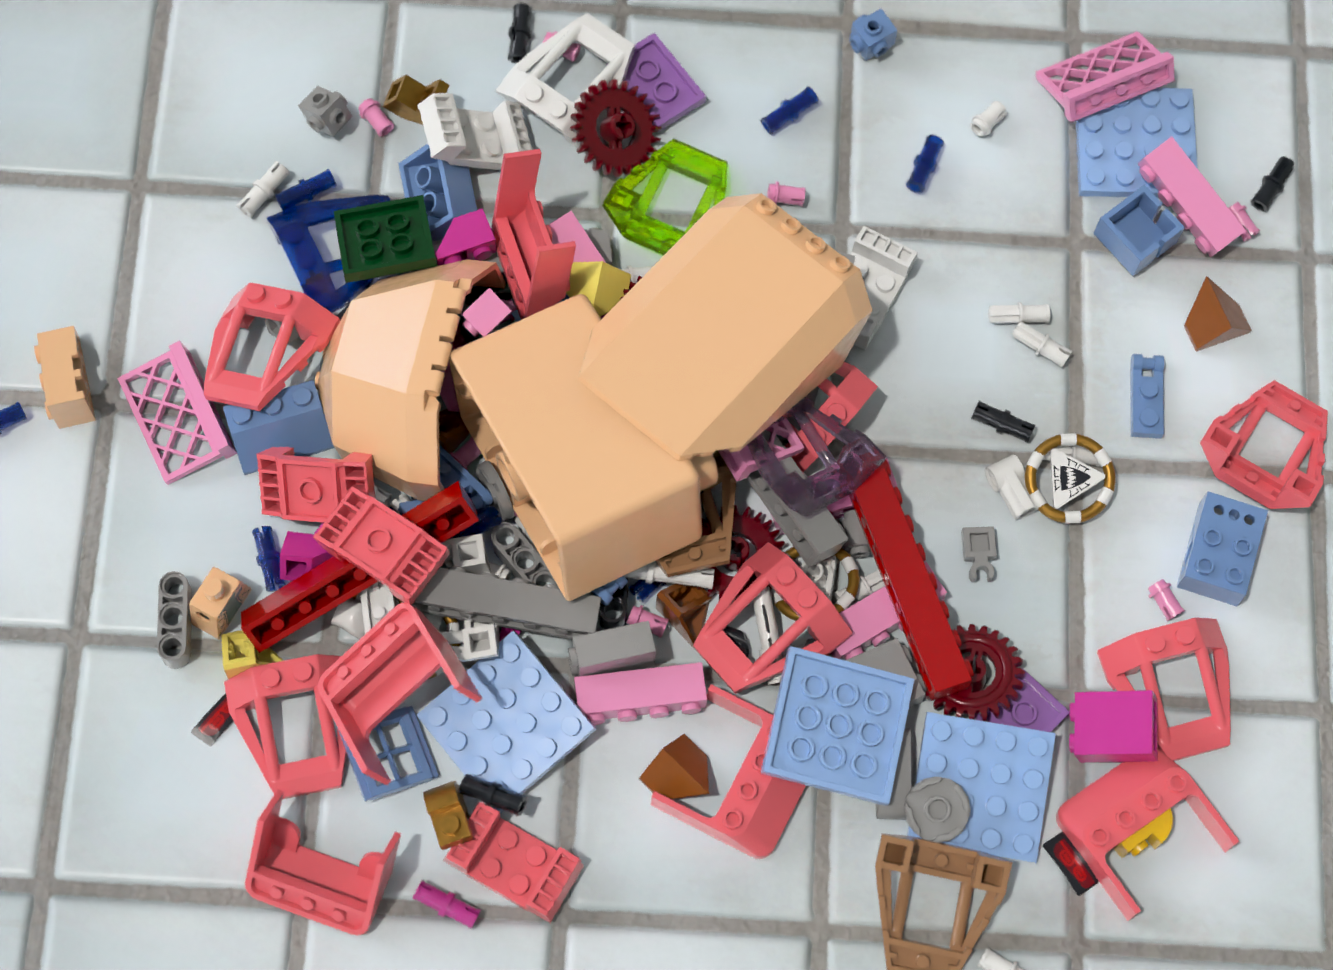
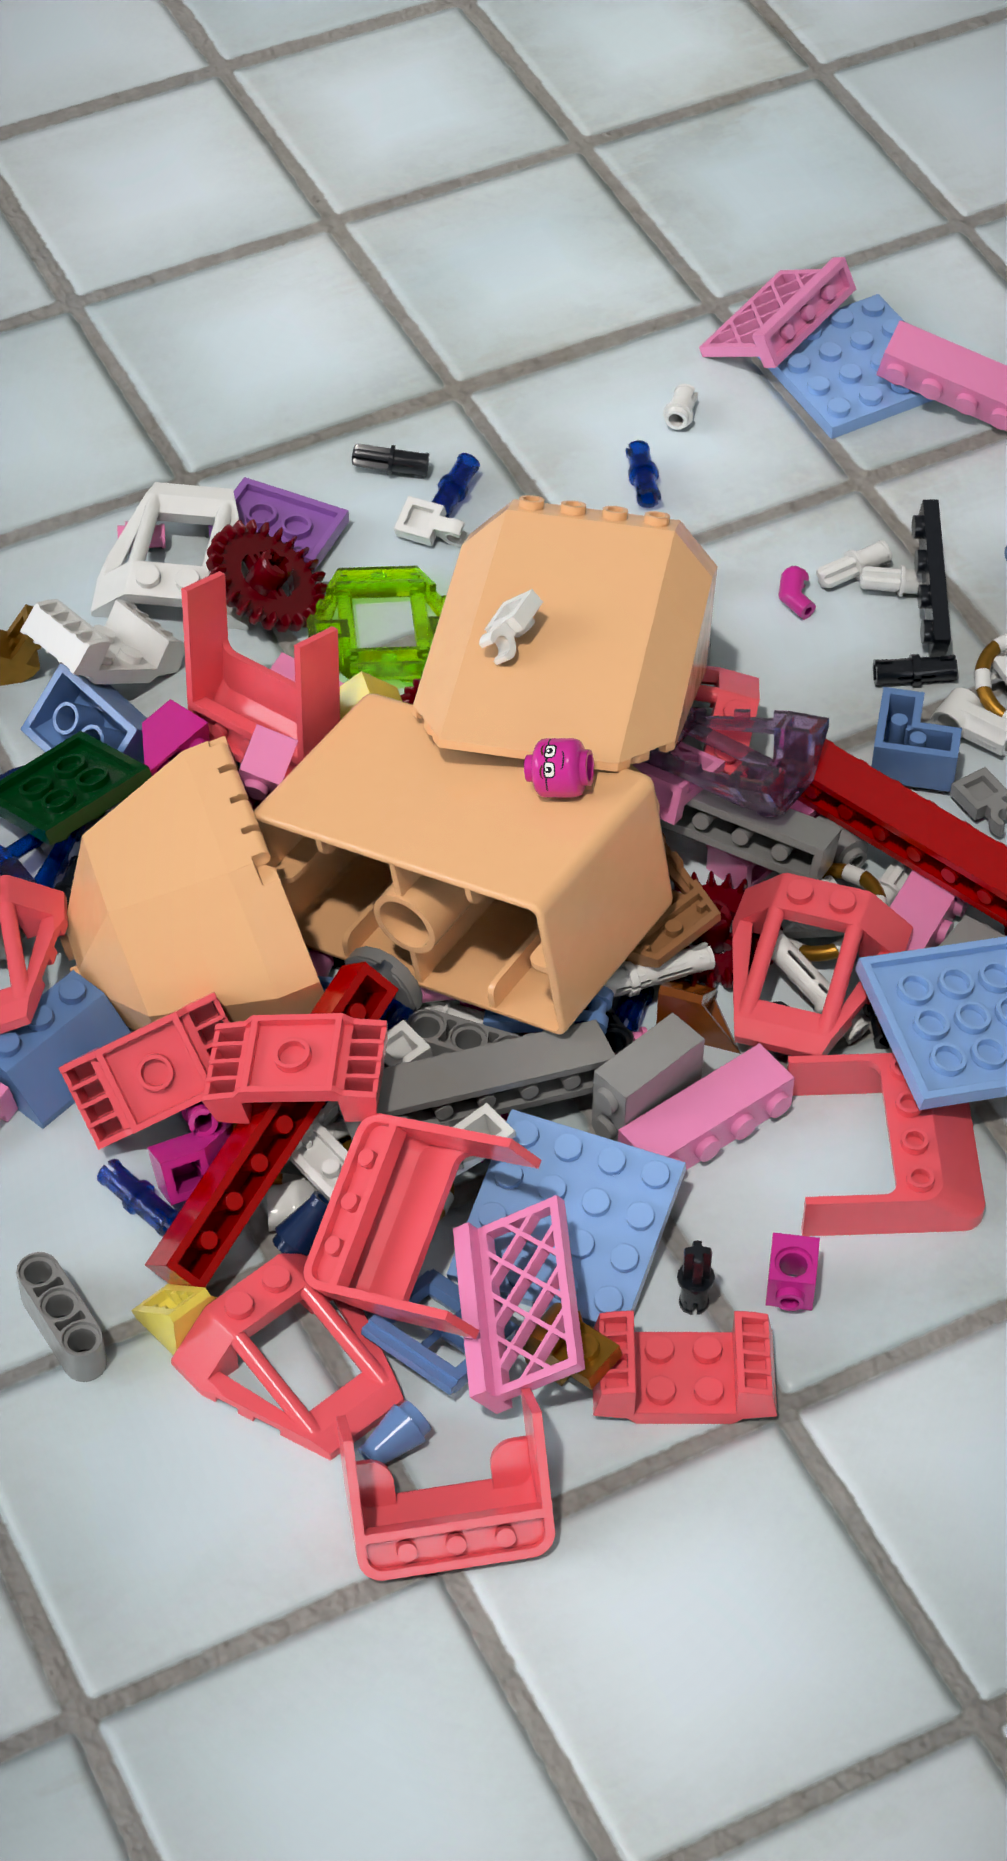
camera: 25 degrees left, 20 degrees down
(213, 722) = (187, 1413): sticker -> none
(219, 600) = (108, 1250): light nougat torso -> none
(318, 809) = (396, 1434): none -> medium blue cone
(342, 639) = (300, 1228): none -> dark blue cone
(411, 765) = (481, 1302): none -> bright pink fence
(446, 904) = (633, 1459): dark pink pin -> none
(493, 794) = (618, 1296): black pin -> none
(519, 32) = (81, 543): black pin -> none
(555, 808) = (695, 1278): none -> black axle
(626, 819) = (792, 1256): none -> dark pink brick
(637, 443) = (559, 768): none -> dark pink head
(677, 308) = (511, 621): none -> white plate
(678, 770) = (810, 1172): dark orange slope -> none
(752, 131) = (425, 520): none -> white plate
(762, 65) = (390, 459): none -> black axle
(872, 35) = (497, 379): medium blue brick -> none
(947, 485) = (913, 750): none -> medium blue brick
(961, 314) = (791, 591): none -> dark pink arm
(1060, 348) = (933, 590): none -> black plate
(1133, 235) = (914, 443): medium blue piece -> none

